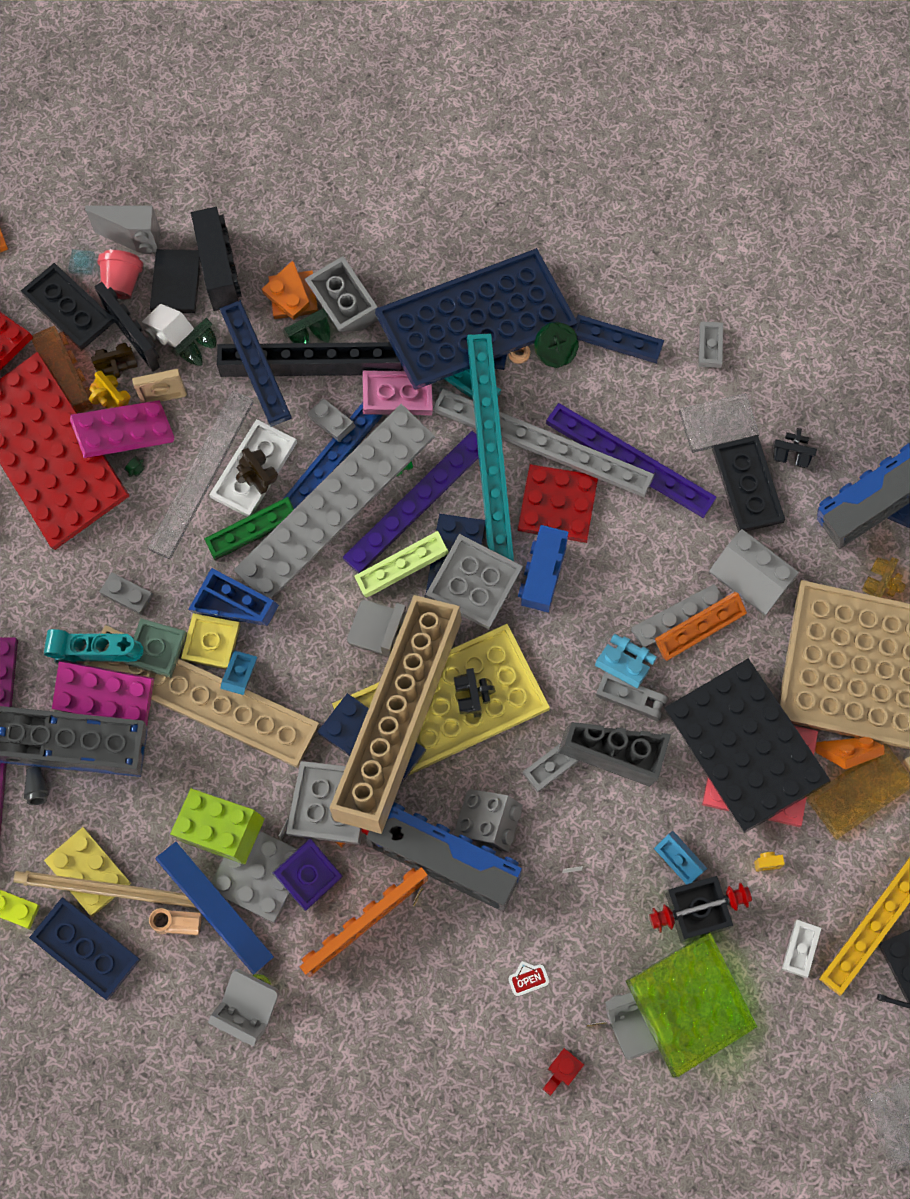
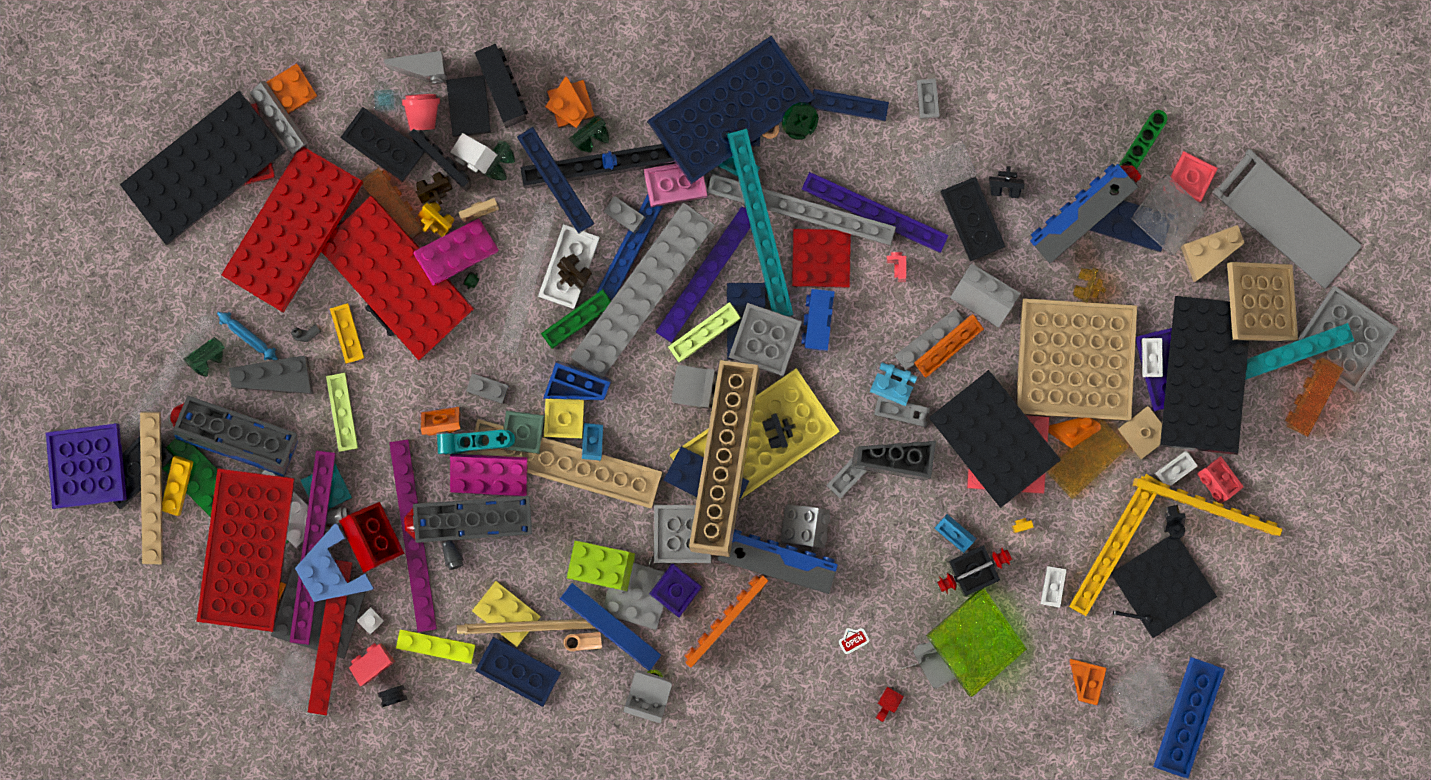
camera: 10 degrees left, 15 degrees up
(25, 512) = (389, 331): none -> black hinge
(65, 619) = (440, 421): none -> orange plate
(322, 348) = (609, 160): none -> blue plate
(343, 296) = (615, 105): light grey slope -> none
(650, 513) = (900, 268): none -> coral bracket
(835, 1084) = (1088, 681): none -> orange wing

